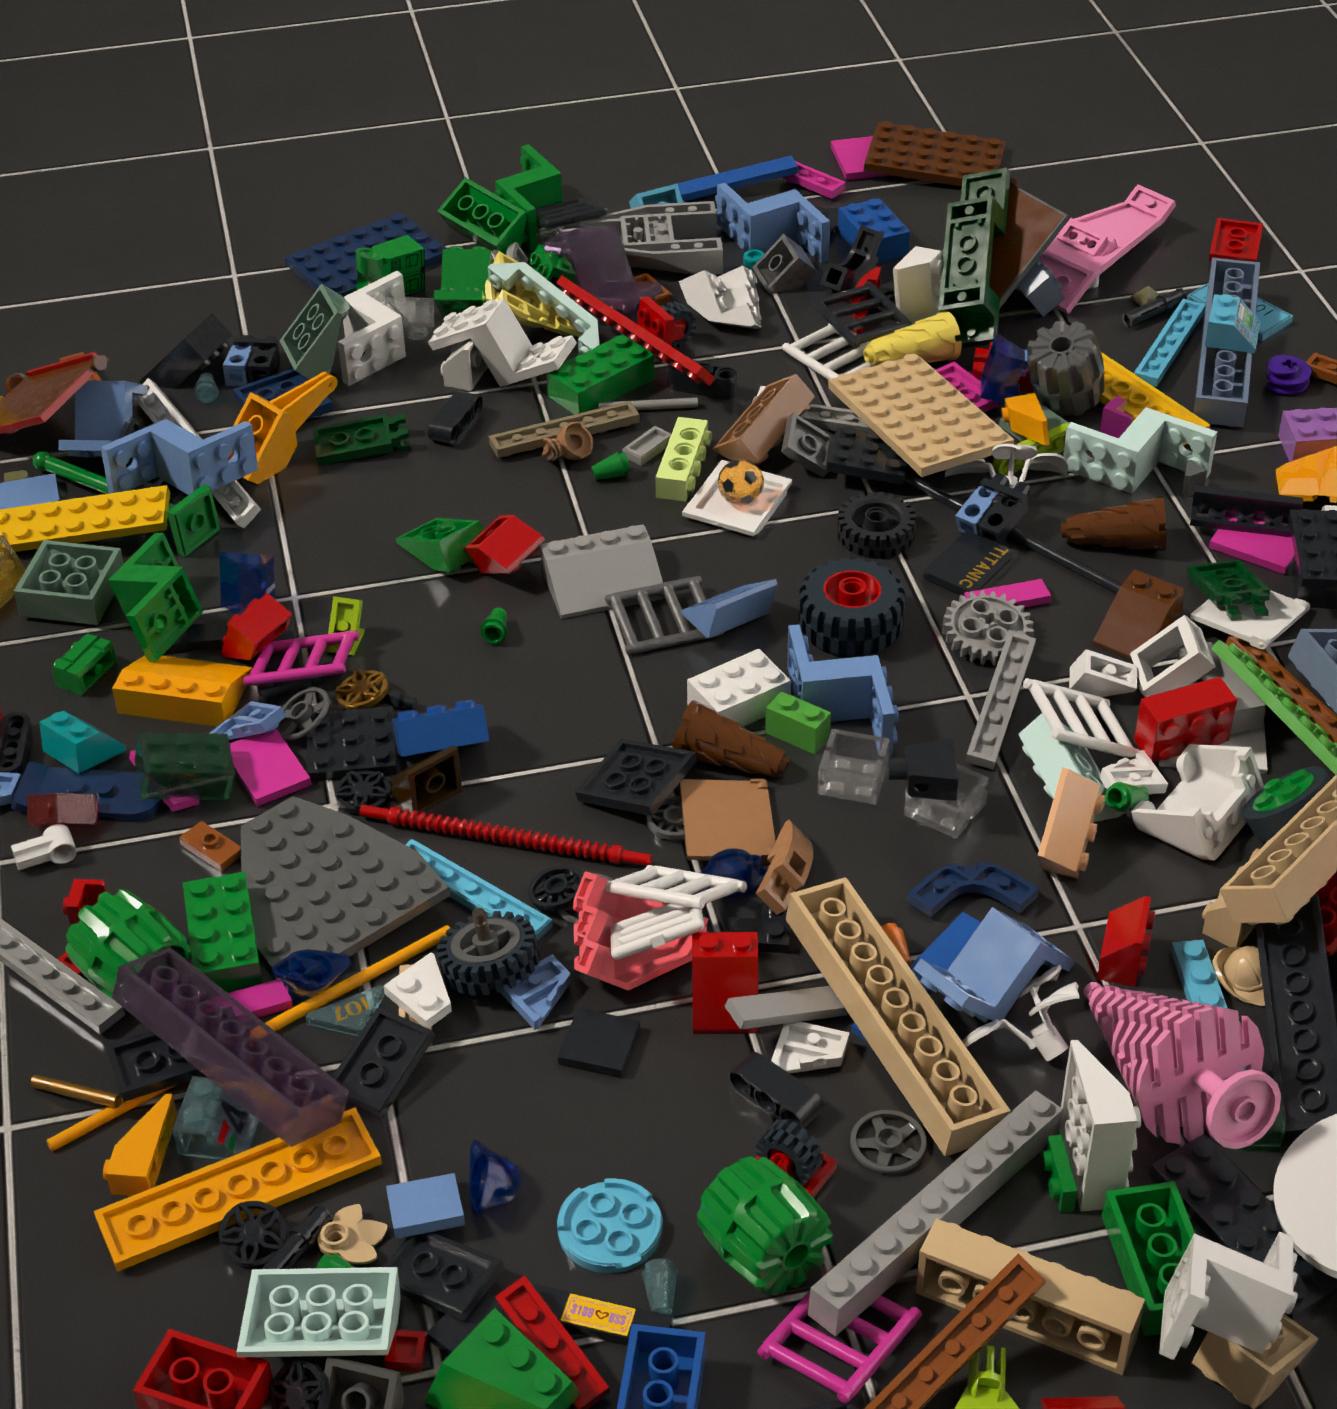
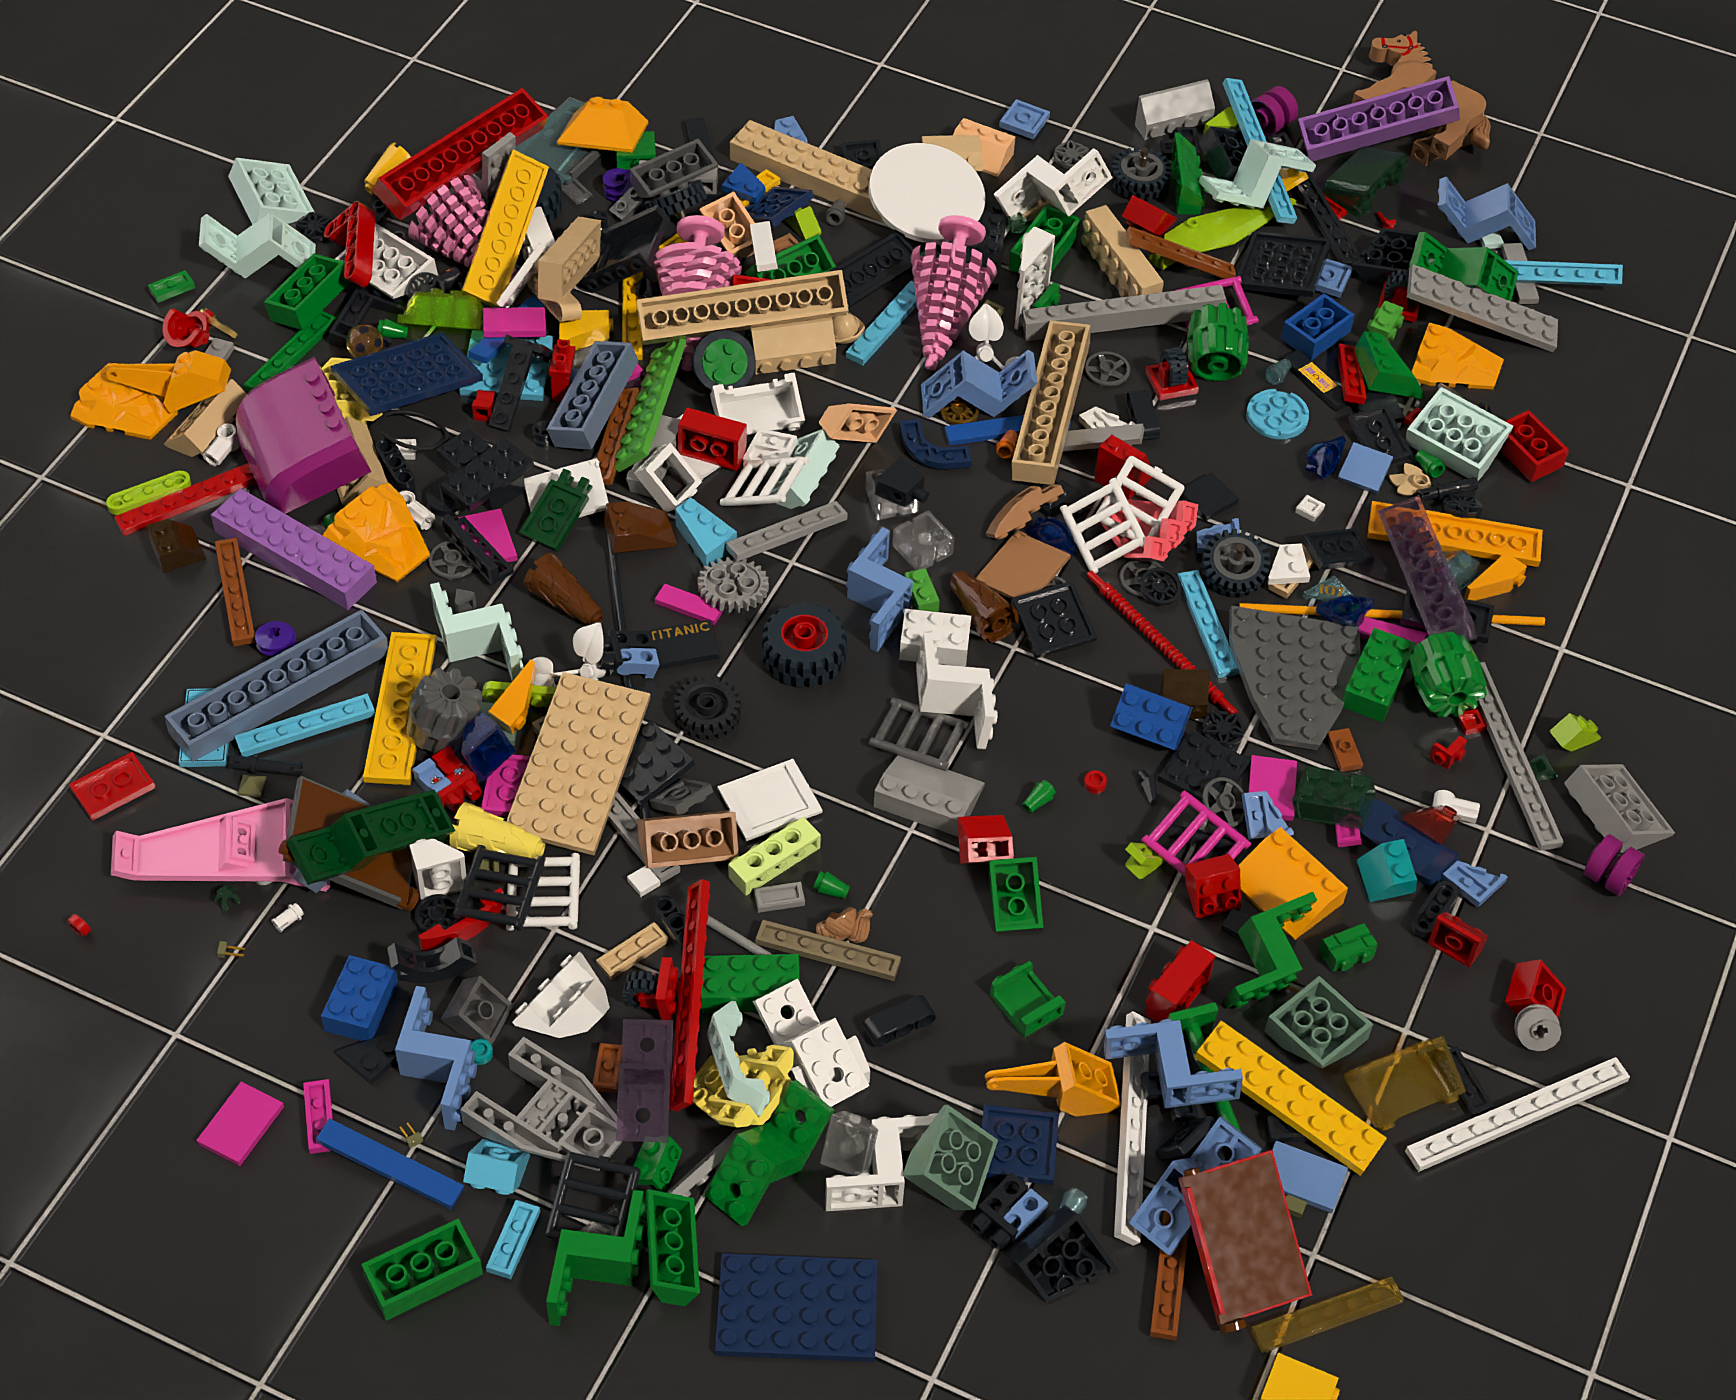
camera: 145 degrees left, 10 degrees up
(76, 1091) = (1515, 637): pearl gold bar -> none
(224, 532) = (1179, 981): none -> red brick
(245, 578) = (1191, 921): clear blue slope -> none
(358, 484) = (1026, 999): none -> green panel
(360, 438) = (985, 1048): dark green tile -> none
(362, 690) = (1166, 802): pearl gold wheel -> none
(394, 255) = (814, 1230): green piece -> none
(454, 674) = (1095, 781): none -> red tile
(460, 1111) = (1310, 508): none -> white tile
(602, 191) = (513, 1239): none -> medium azure plate
(638, 148) = (422, 1269): none -> green brick
(657, 636) = (956, 690): none -> white bracket
(724, 350) = (632, 951): none -> tan tile
(732, 608) = (877, 695): medium blue slope -> none
(740, 482) = (768, 787): clear orange piece -> none
(931, 153) = (184, 1067): reddish brown plate -> none
(1062, 642) = (703, 531): none -> medium azure wedge
(1102, 675) = (716, 502): white slope -> none
(1114, 419) = (463, 659): magenta panel -> none
(1119, 174) = (79, 925): none -> red tile
(1124, 796) = (799, 426): green cone -> none
(1125, 942) = (893, 363): red slope -> none
(1232, 325) = (288, 664): medium azure slope -> none

